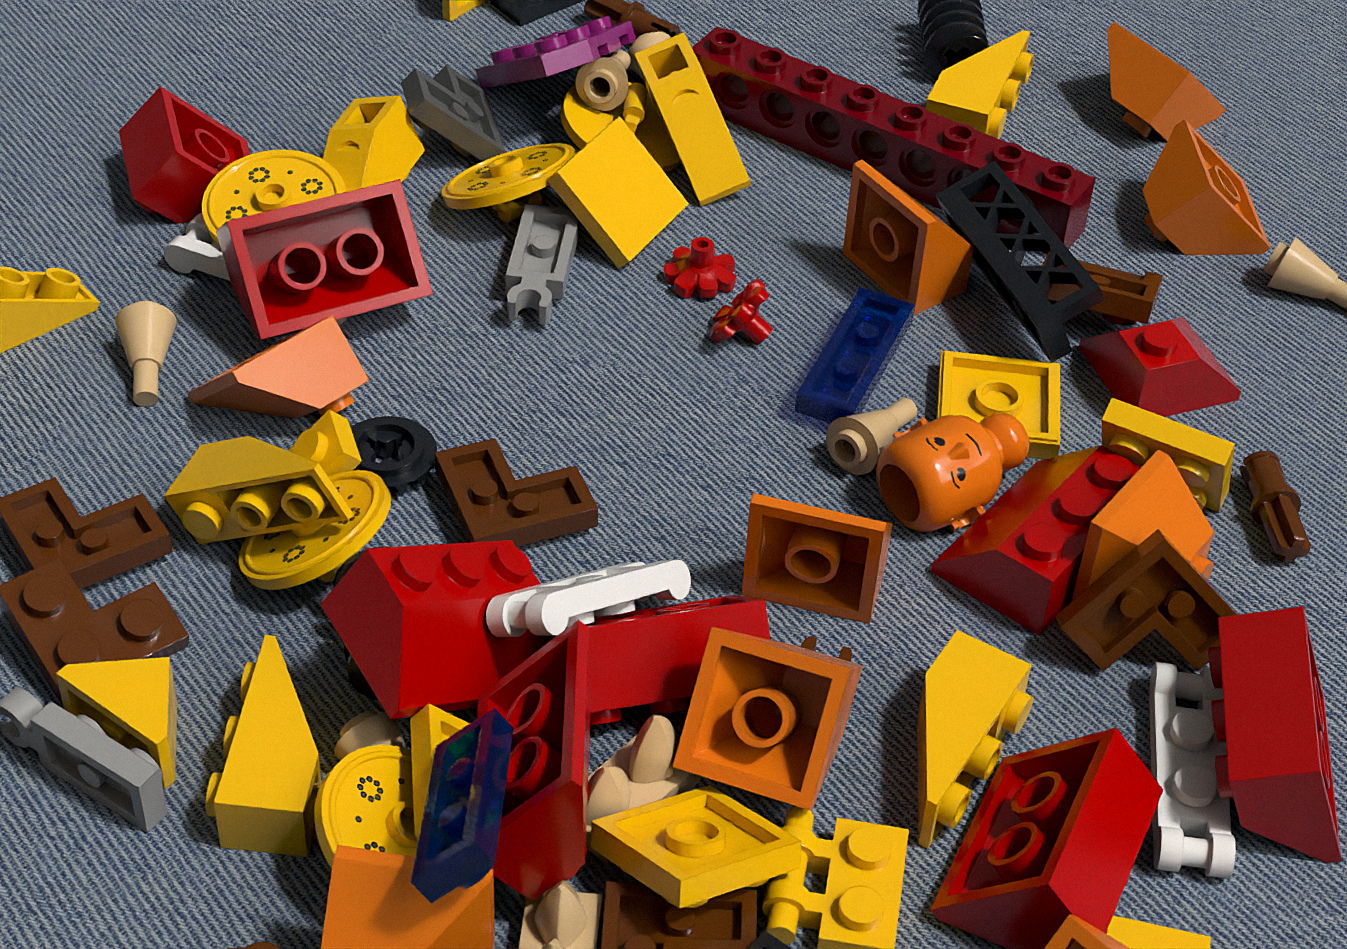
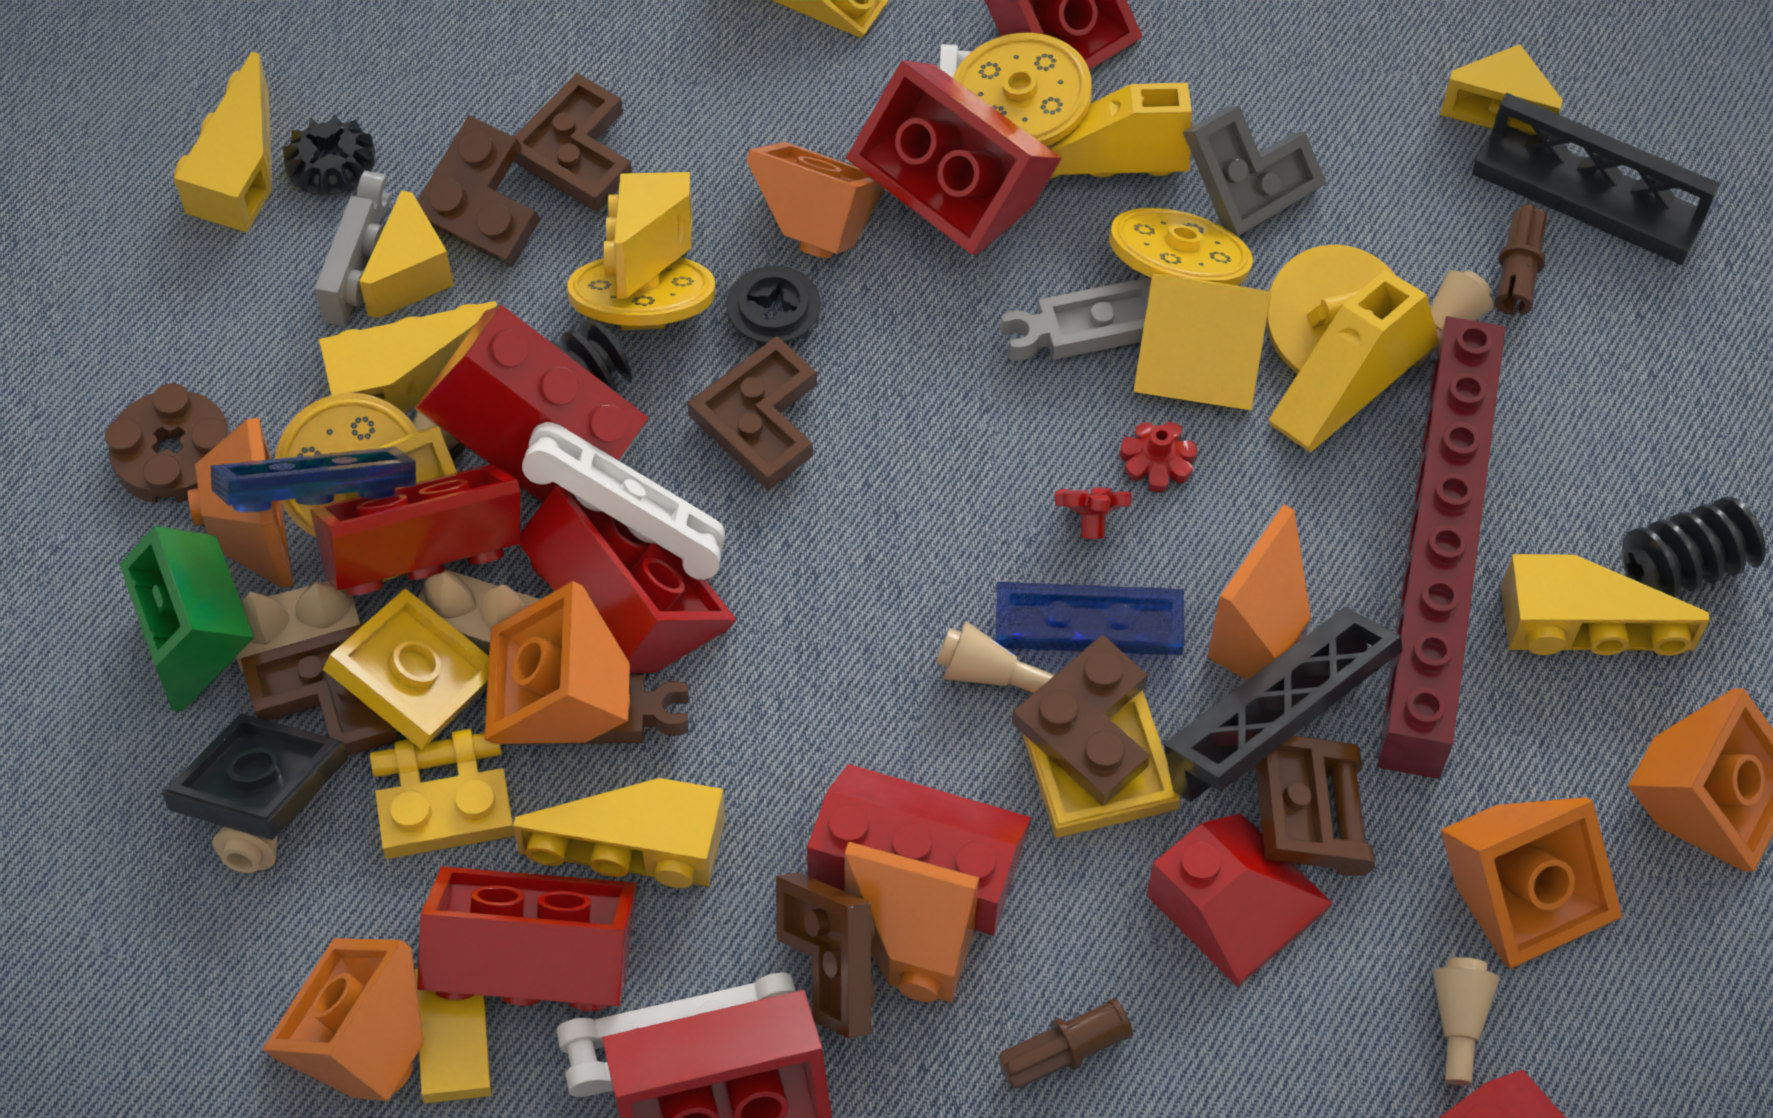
camera: 70 degrees right, 15 degrees up
(145, 336) = (818, 85): tan cone -> none
(329, 444) = (740, 259): yellow plate -> none
(555, 52) = (1366, 205): magenta plate -> none
(604, 81) = (1355, 263): tan cone -> none
(814, 558) = (789, 664): orange slope -> none
(948, 469) = (952, 733): orange piece -> none
(950, 385) = (1073, 722): none -> reddish brown plate
(1199, 456) = (1043, 911): yellow plate -> none

